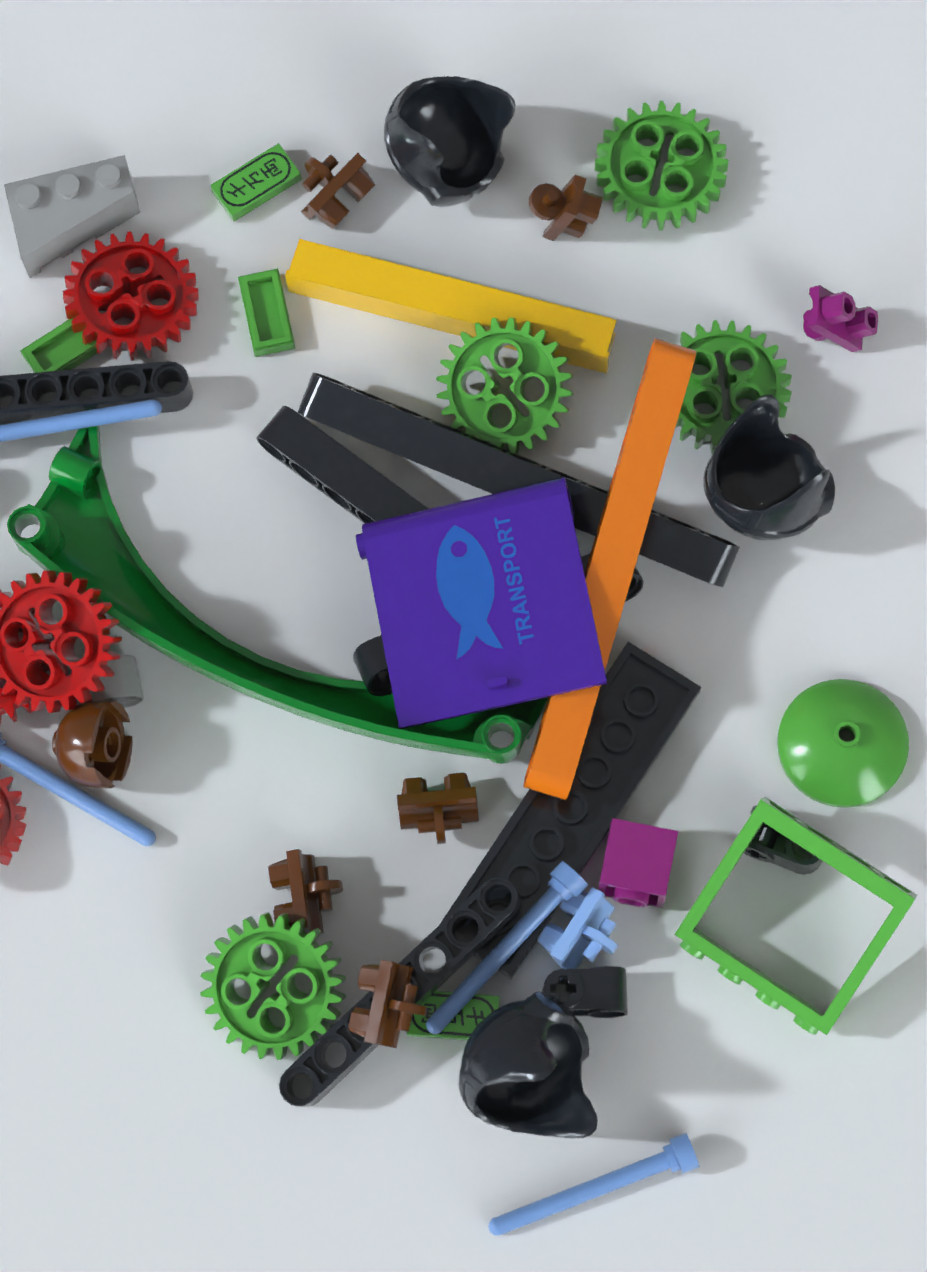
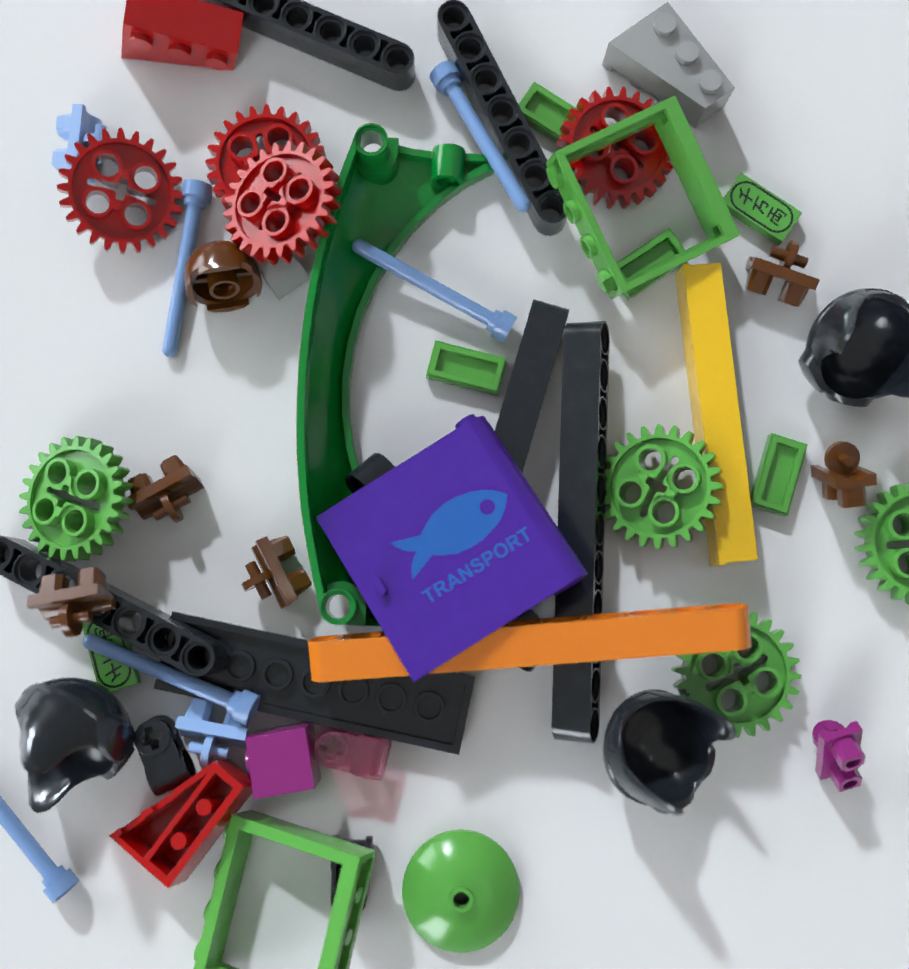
camera: 60 degrees right, 10 degrees up
(203, 229) = (693, 175): none -> bright green window
(266, 483) = (497, 322): none -> medium blue piece
(299, 535) = (466, 368): none -> bright green tile
(538, 270) = (777, 474): none -> bright green tile
(660, 789) = (361, 753): none -> clear pink piece
(664, 986) = (185, 824): none -> red wedge

